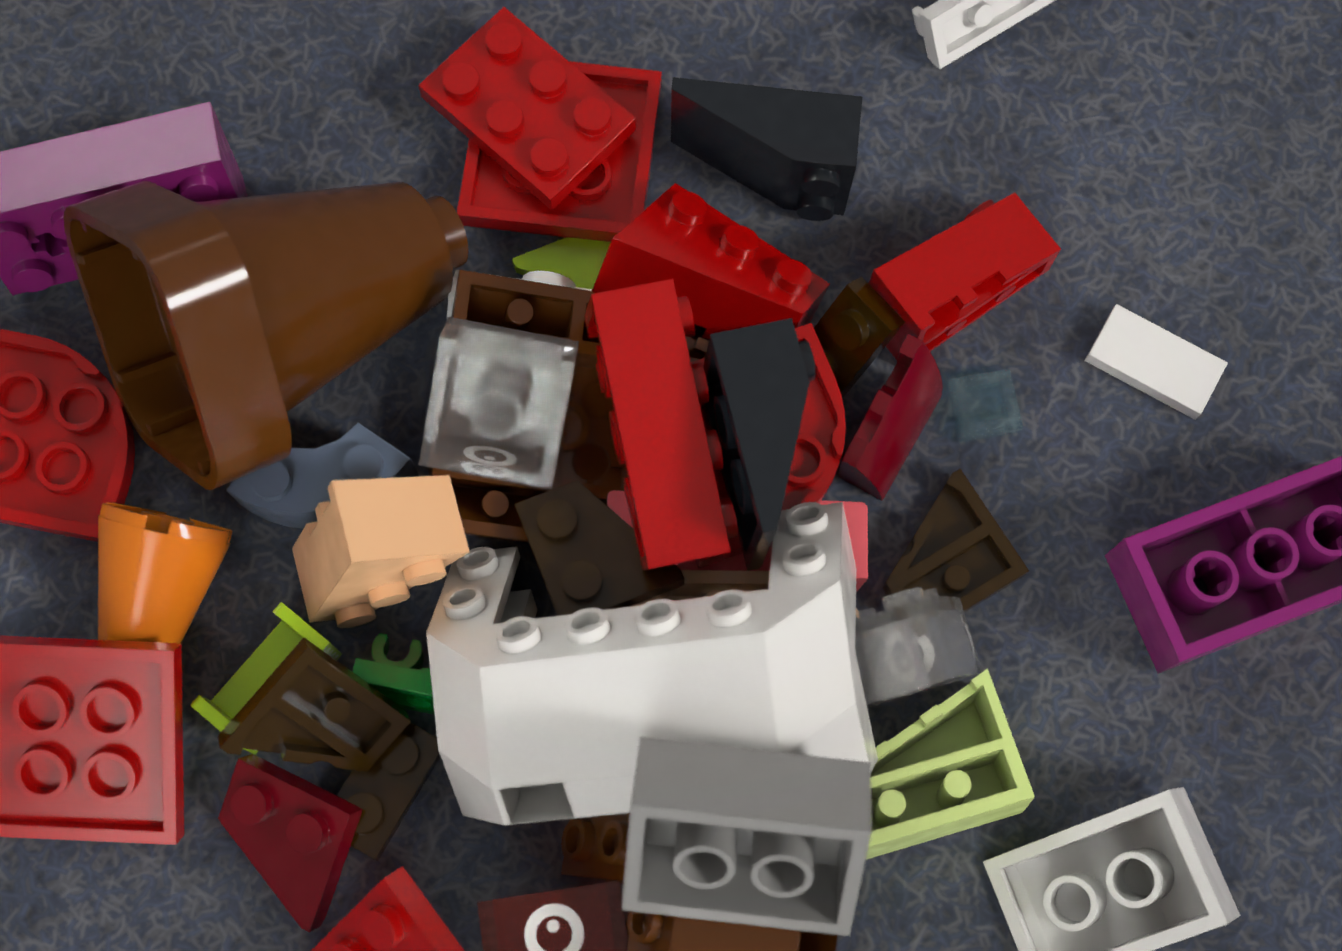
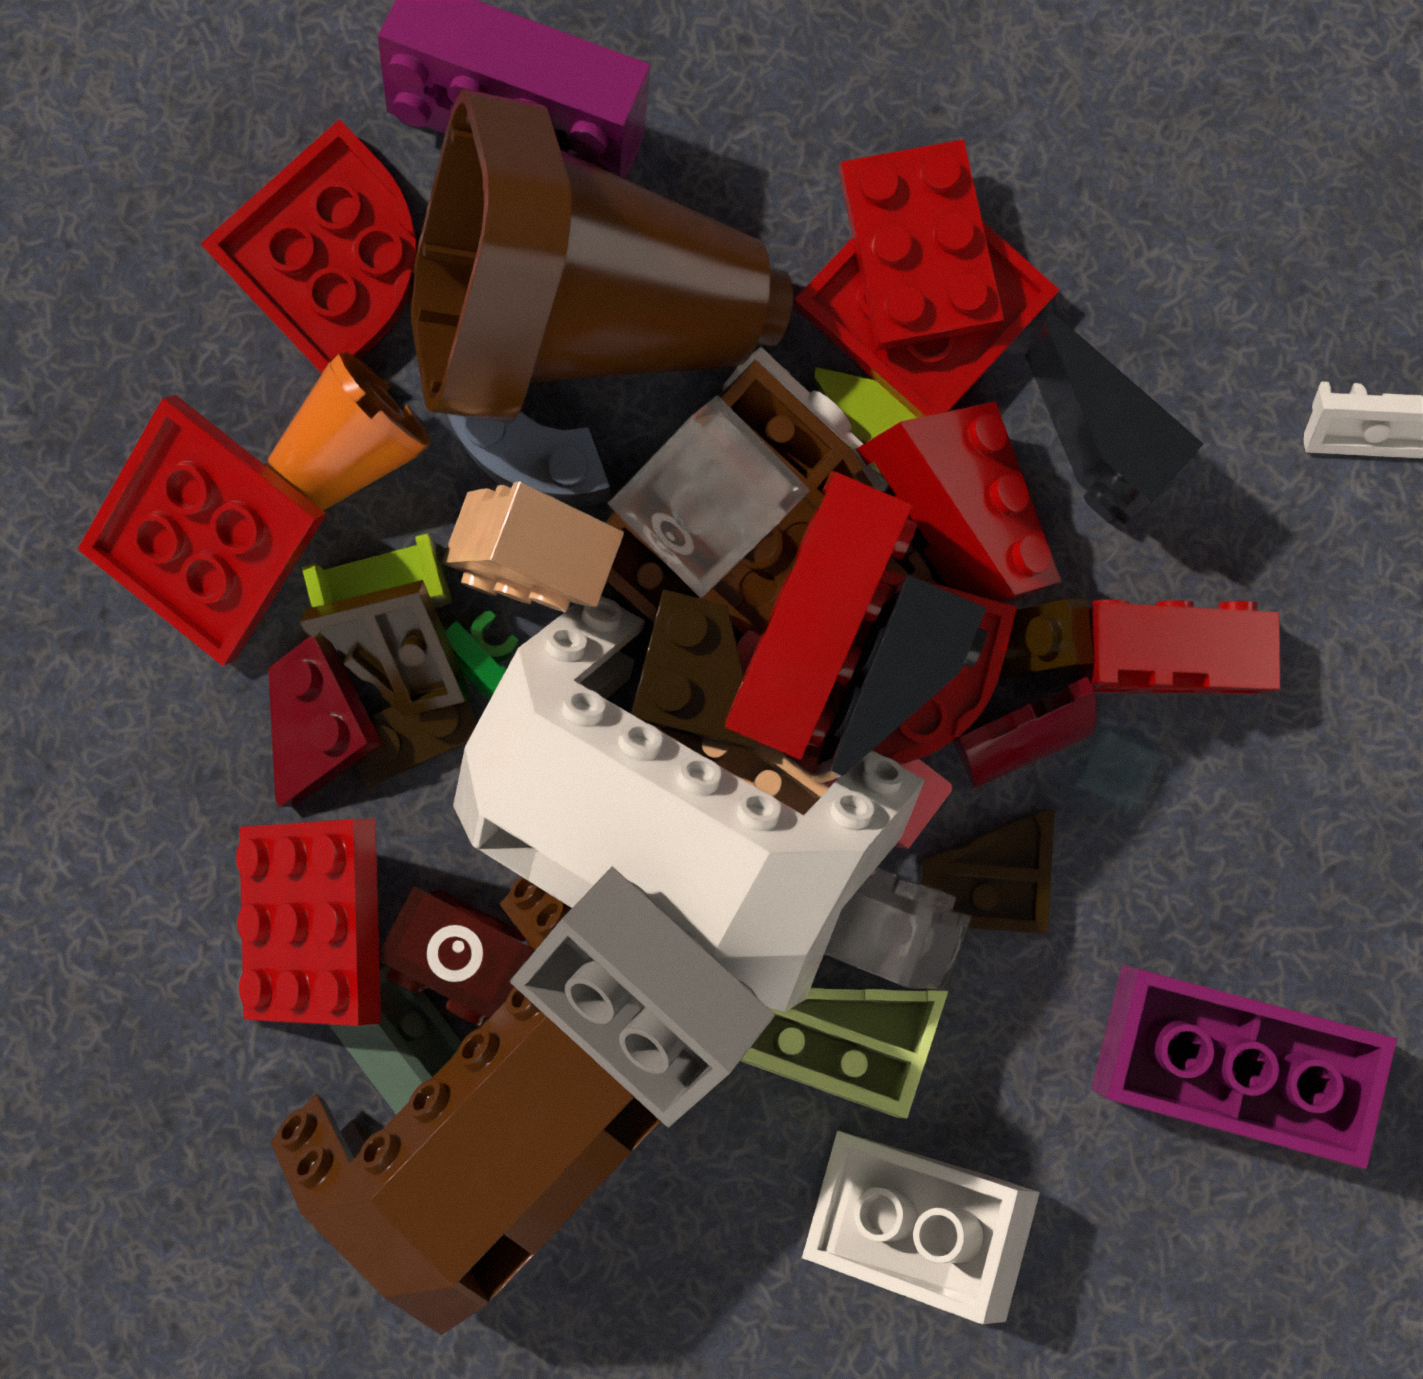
camera: 35 degrees right, 10 degrees up
(1156, 362) = (1291, 837): white tile -> none

